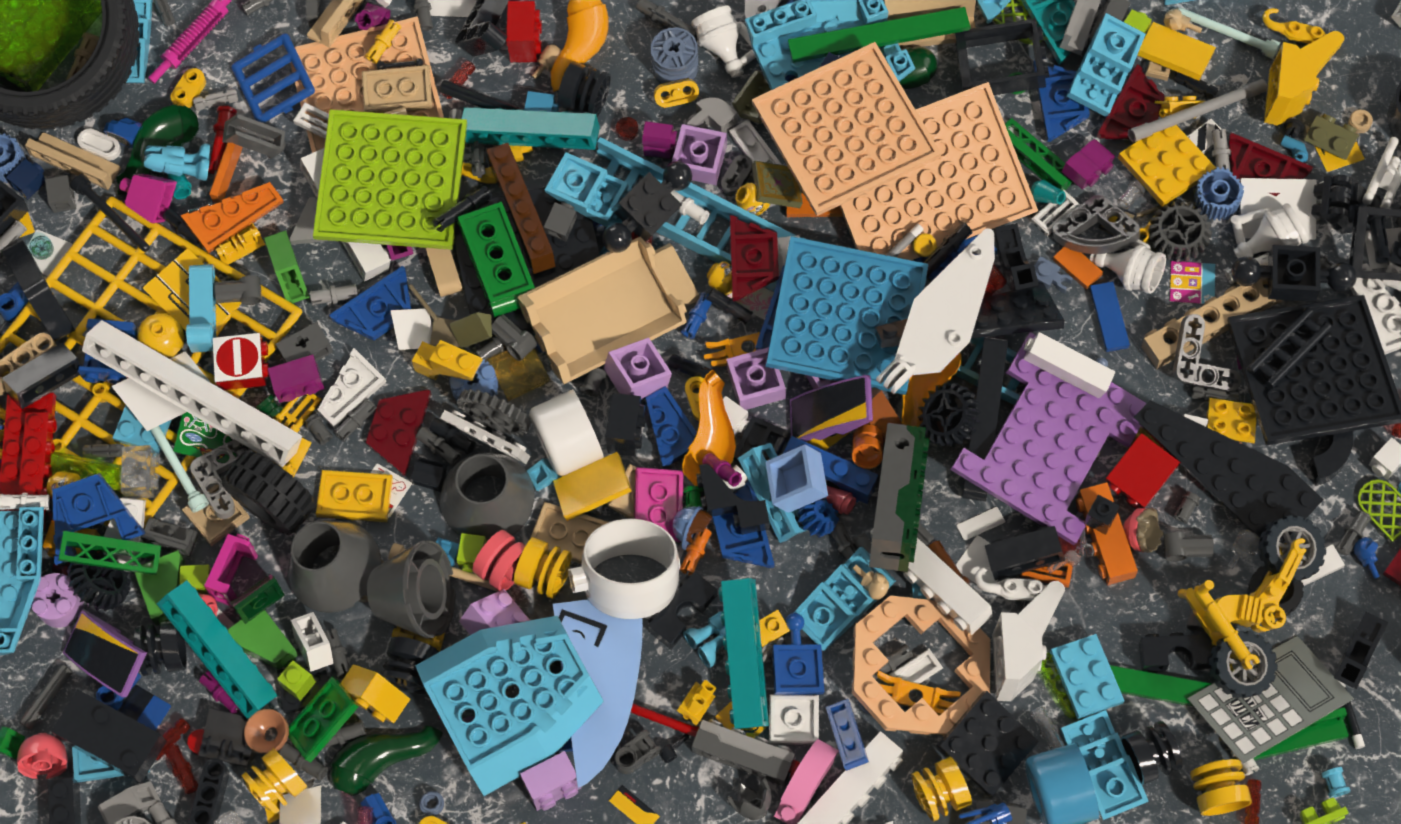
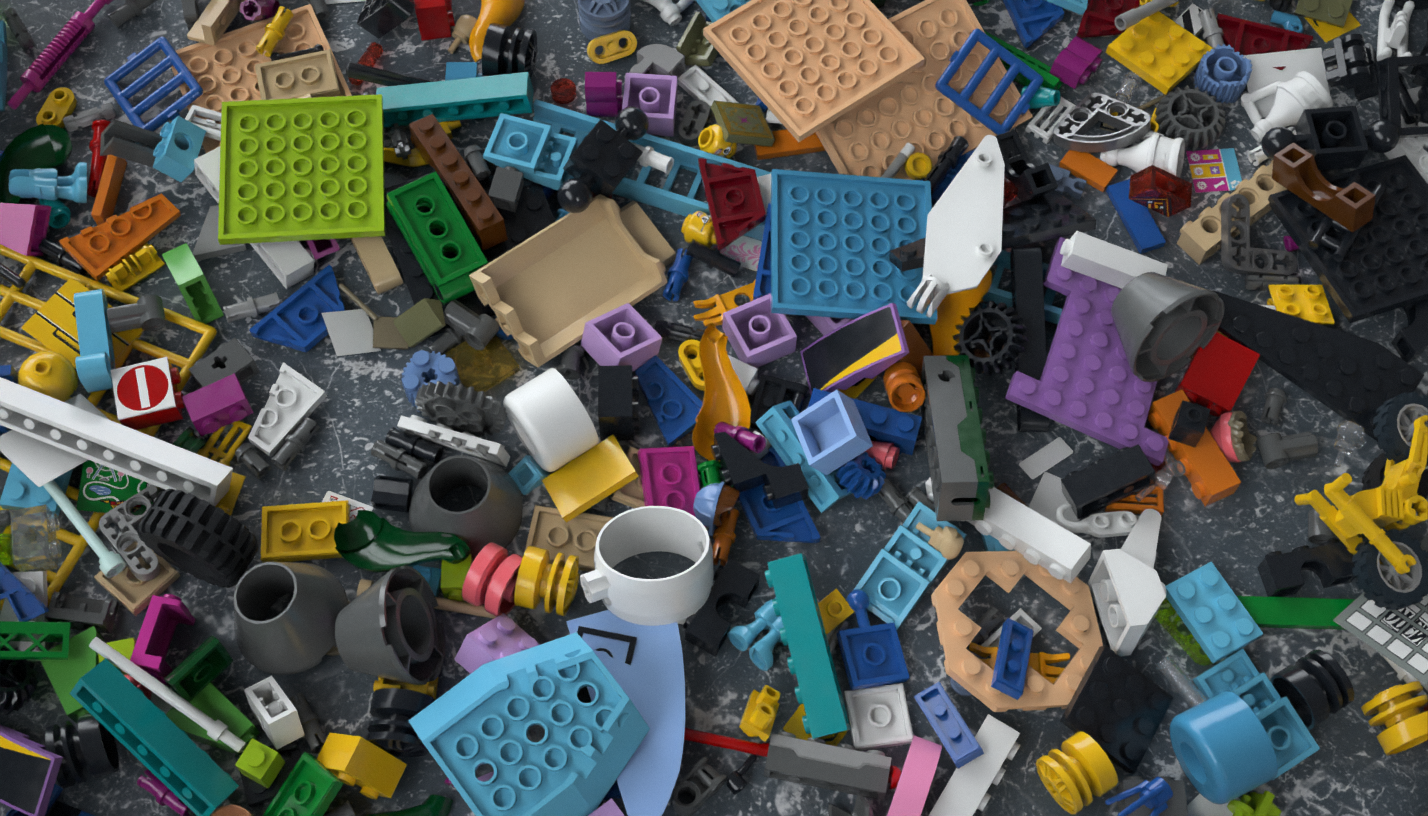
camera: 15 degrees left, 5 degrees down
(266, 649) = (216, 729): none -> white bar
(285, 154) = (178, 148): none -> medium azure brick
(396, 427) = (346, 445): dark red wing -> none
(414, 520) = (378, 546): none -> dark green animal
(445, 360) = (394, 358): yellow arch -> none
(468, 204) = (396, 180): black pin -> none
(540, 197) = (474, 156): none -> dark grey pin
(908, 689) = (1012, 658): none -> blue tile
(974, 189) = (1016, 67): none -> blue bar
(1095, 426) = (1164, 323): none -> dark grey cone
(1132, 299) = (1160, 191): none -> clear red brick
(1256, 305) = (1298, 173): none -> reddish brown arch

